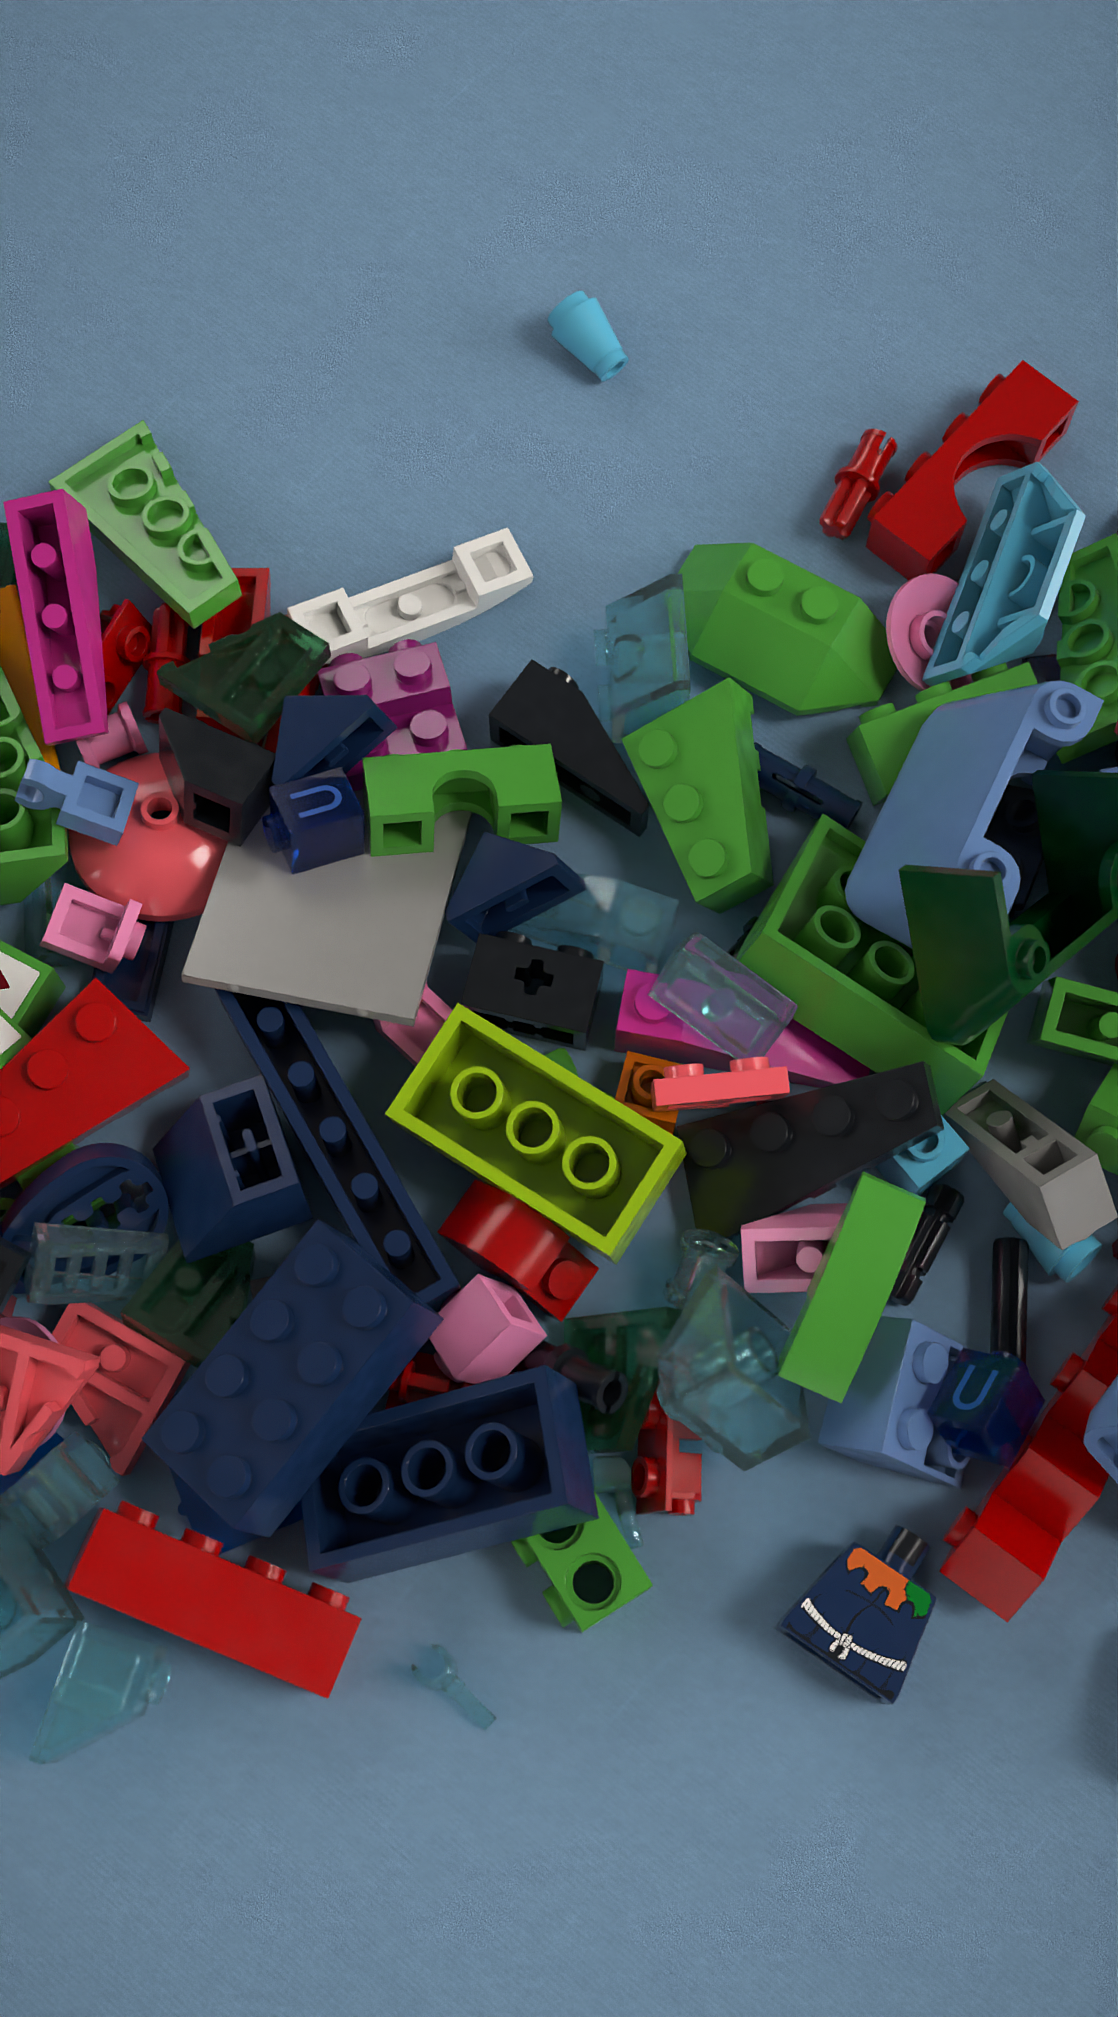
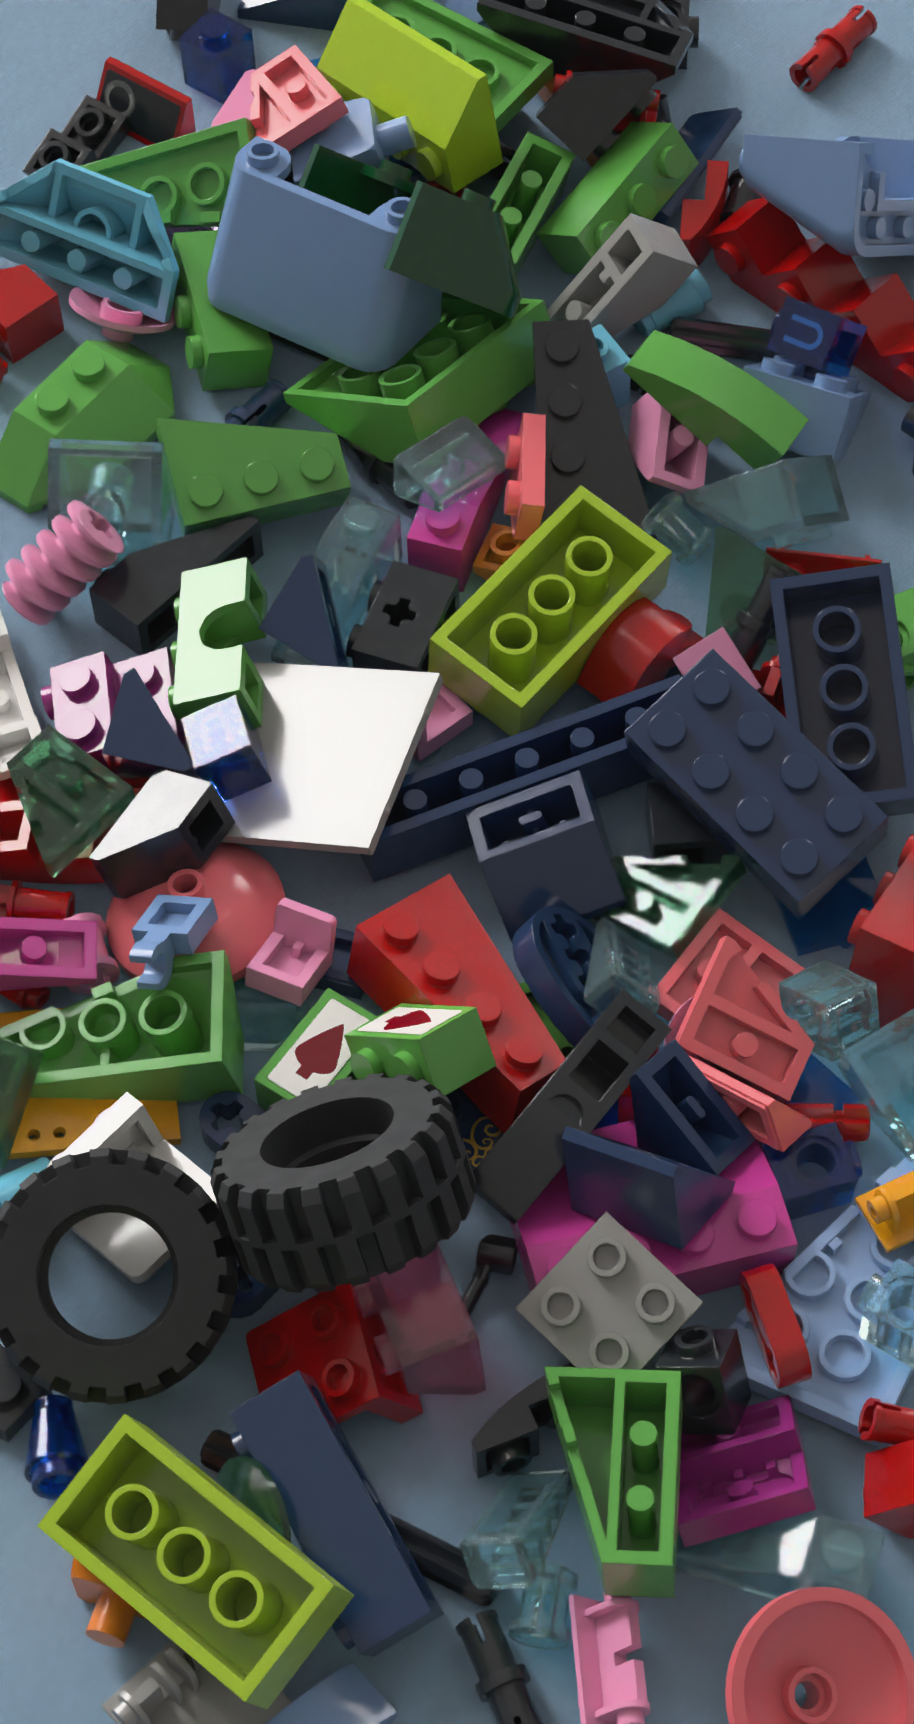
camera: 80 degrees left, 15 degrees down
(560, 625) = (61, 563): none -> bright pink piece

